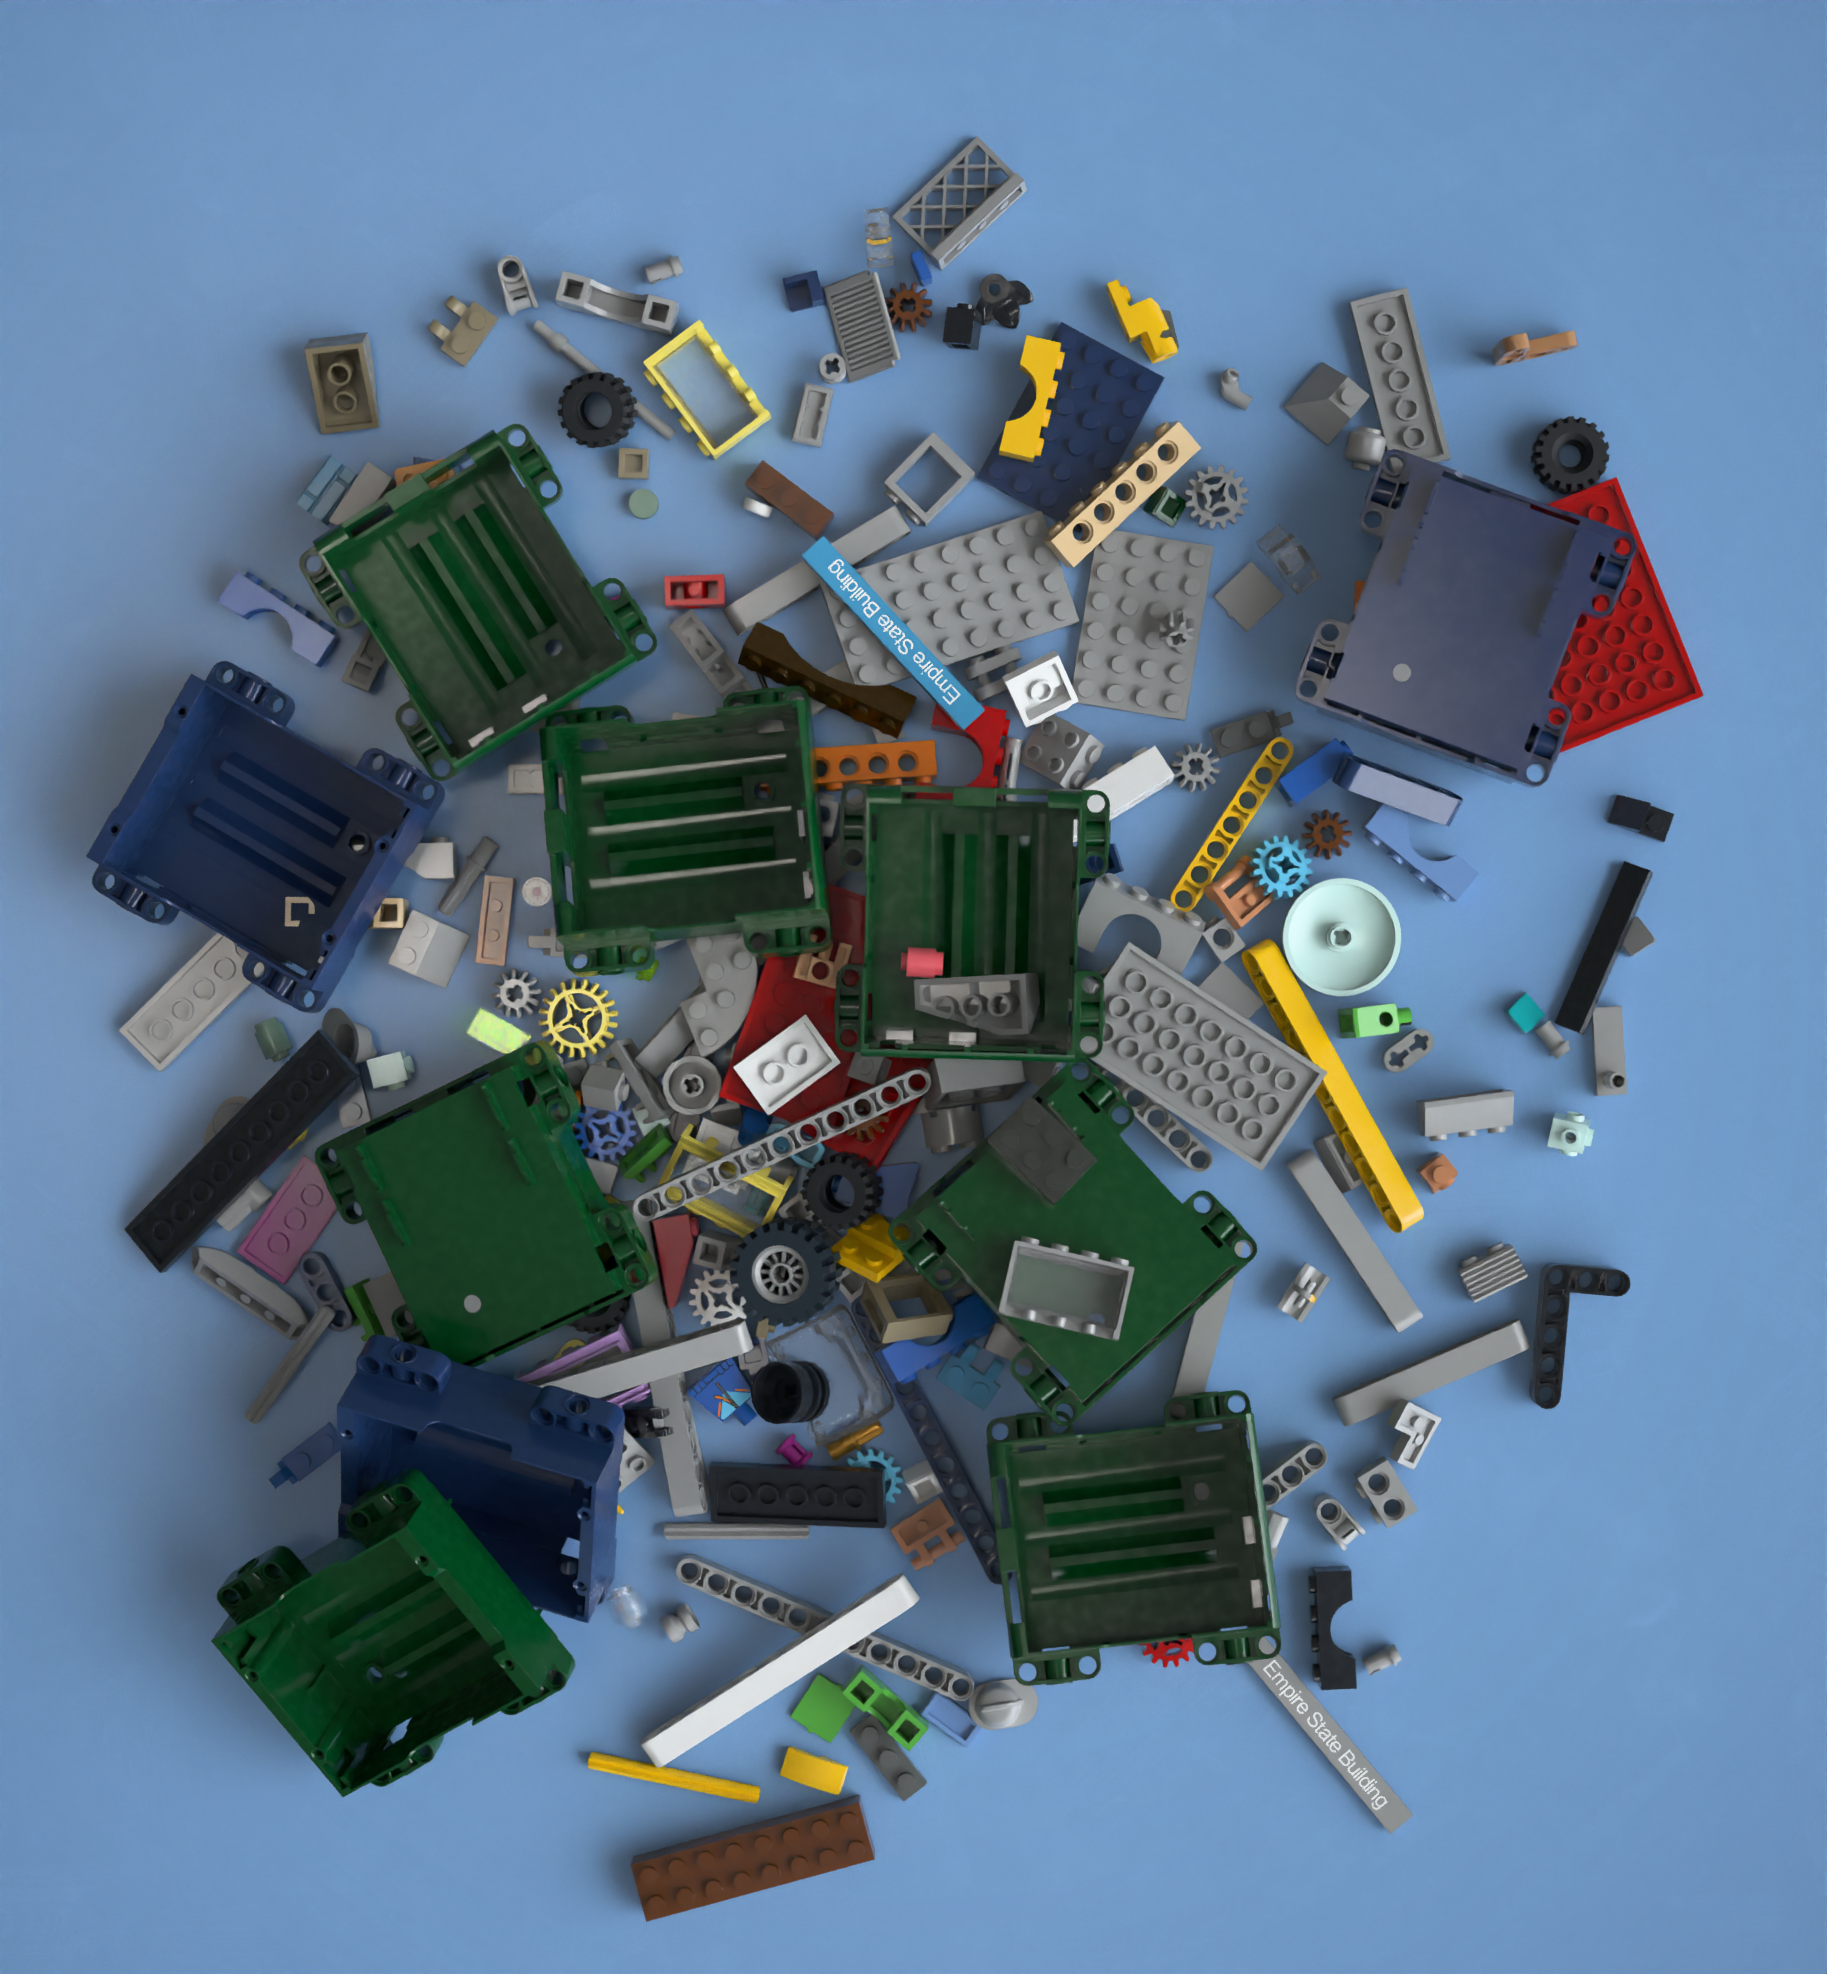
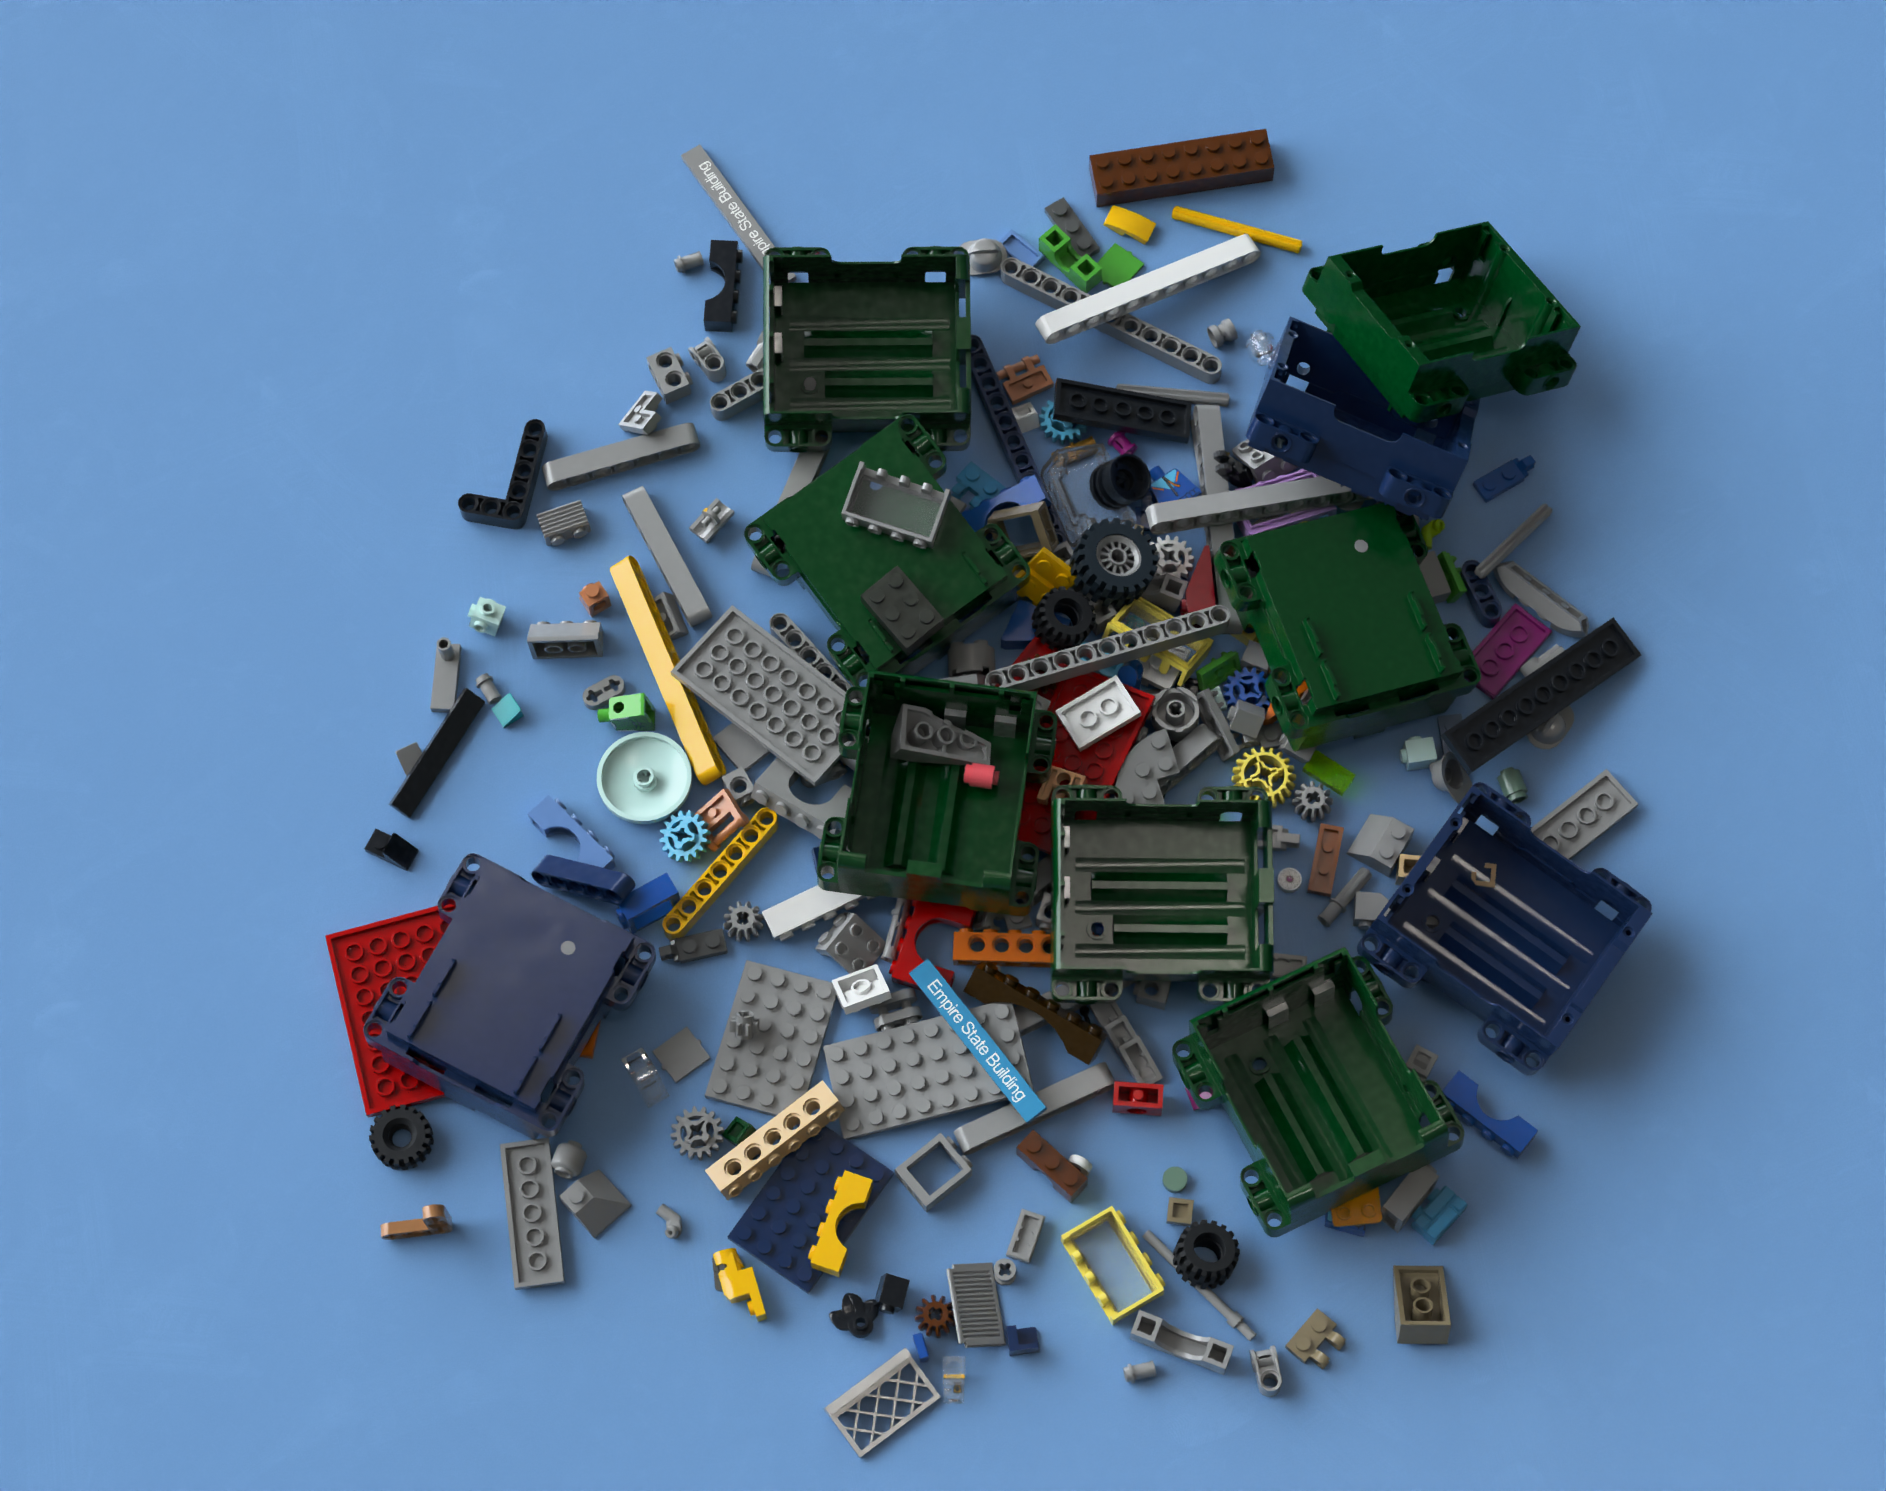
camera: 170 degrees left, 20 degrees down
(1336, 831) = (645, 850): reddish brown gear -> none

